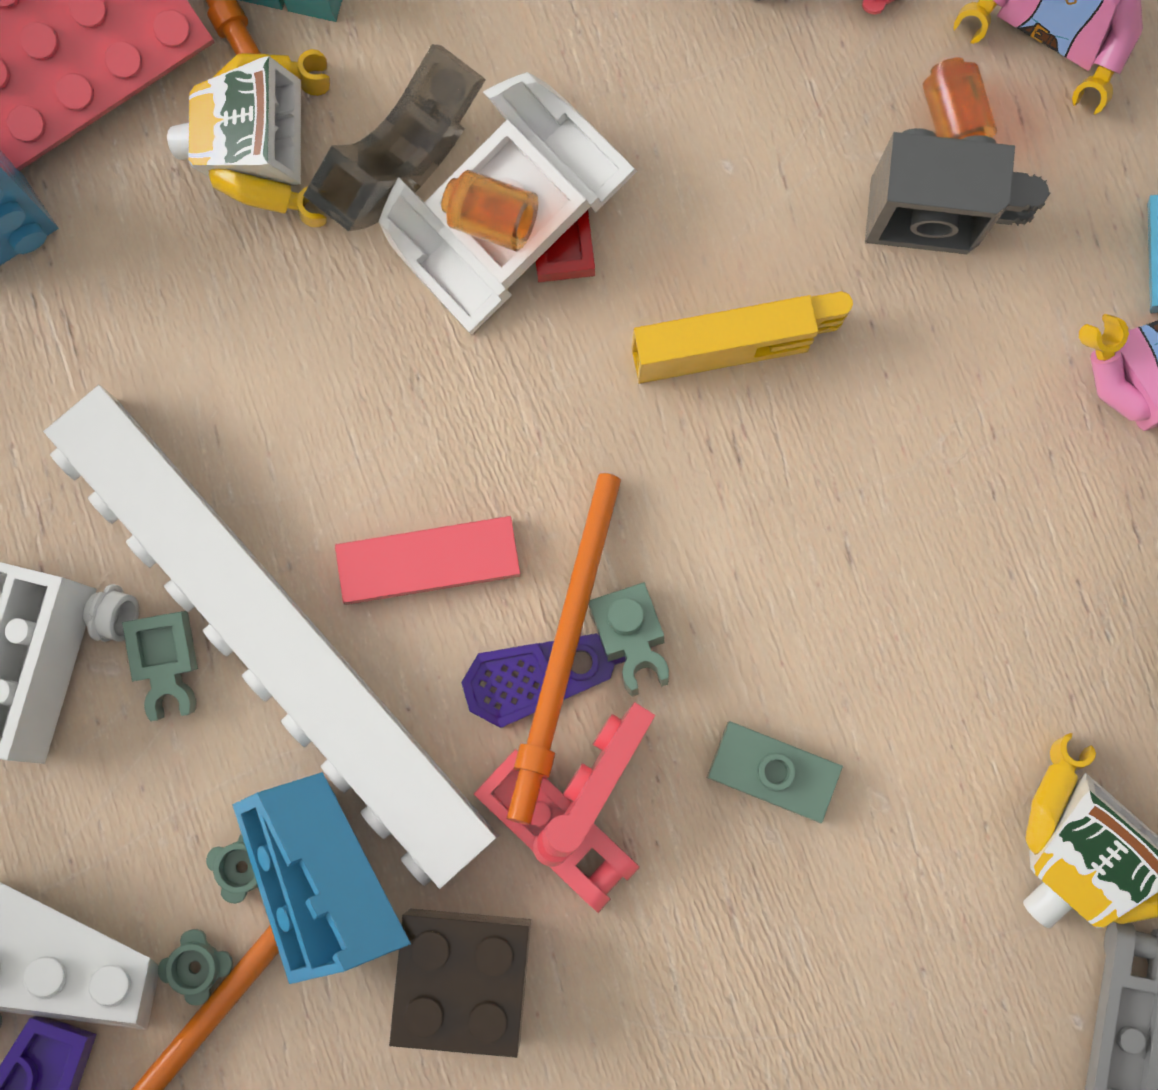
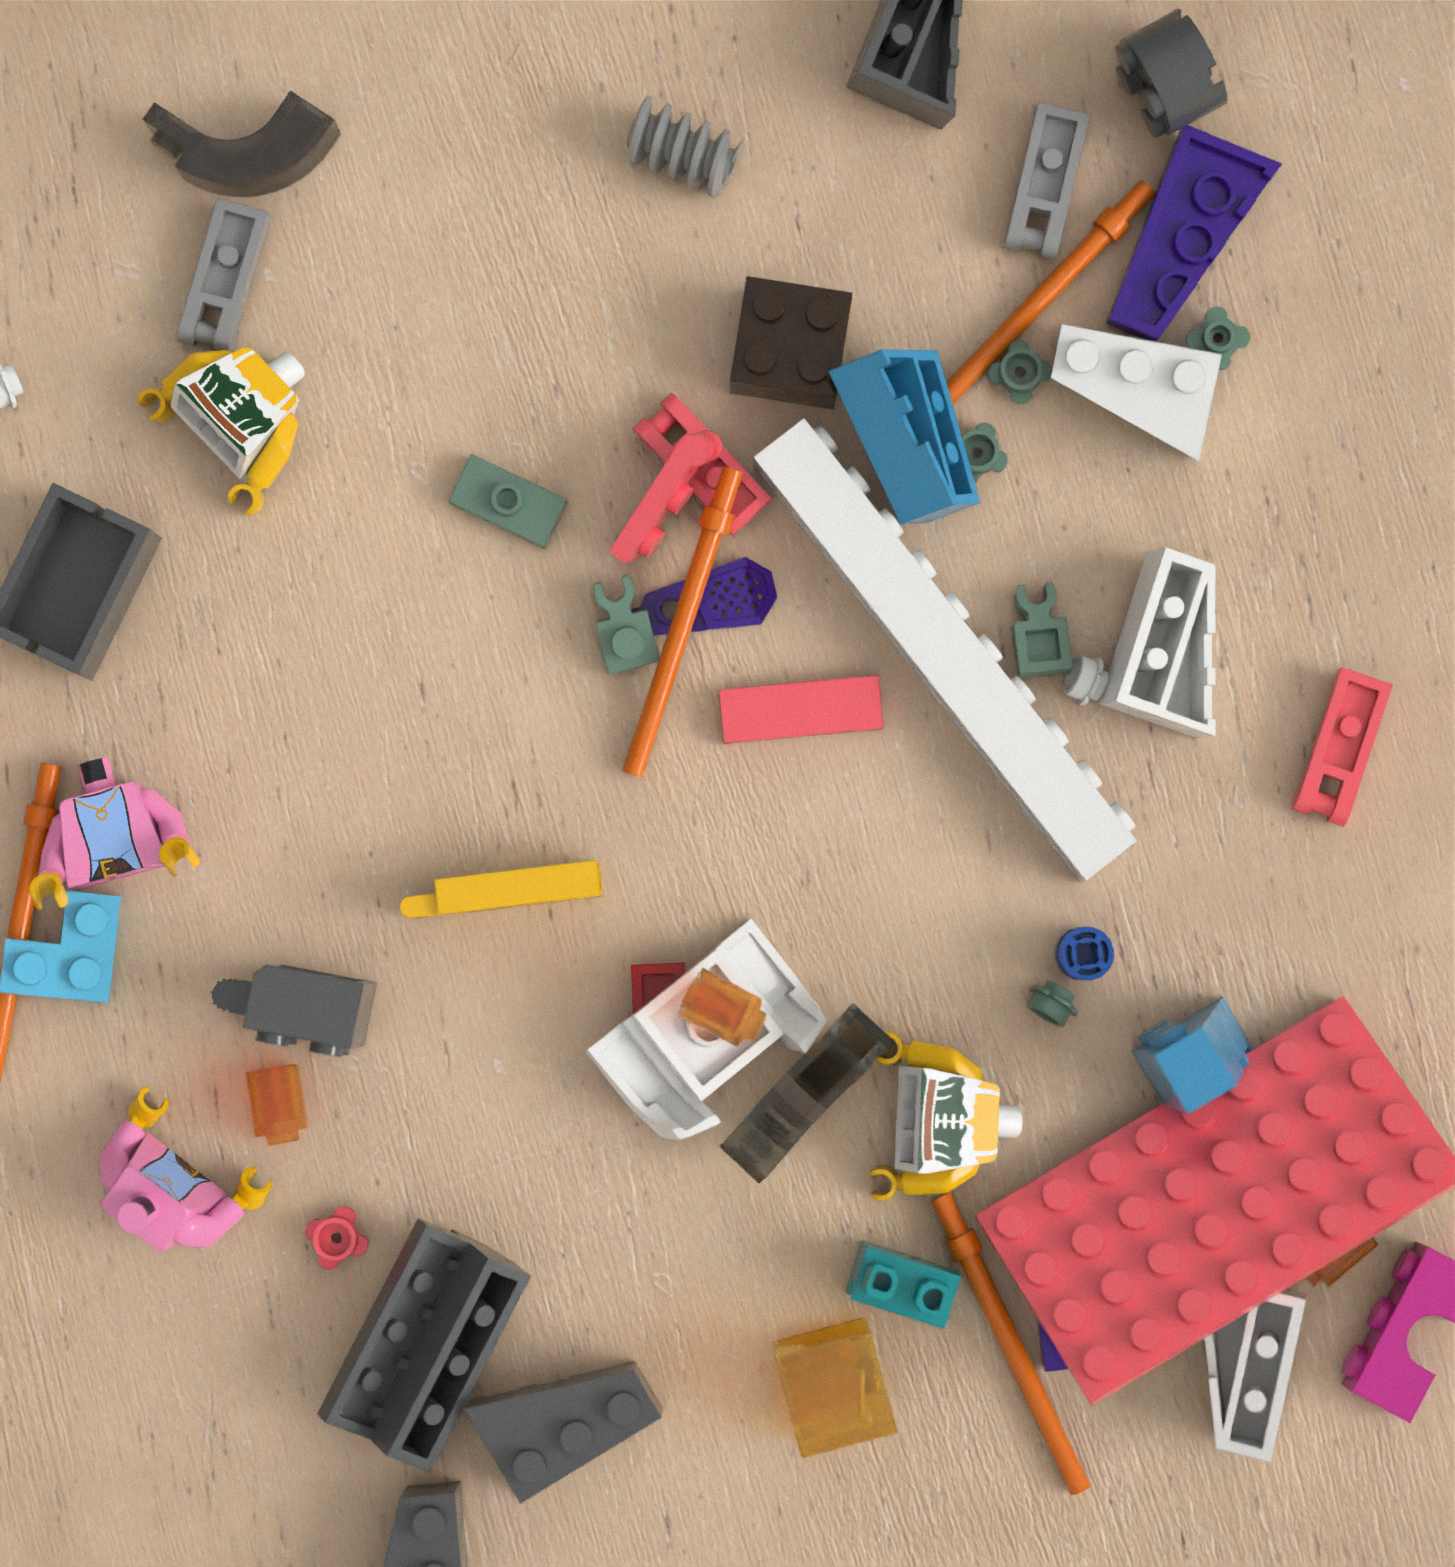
camera: 175 degrees left, 5 degrees up
(115, 325) = (1076, 955): none -> blue wheel
(139, 264) = (1052, 1003): none -> sand green plate

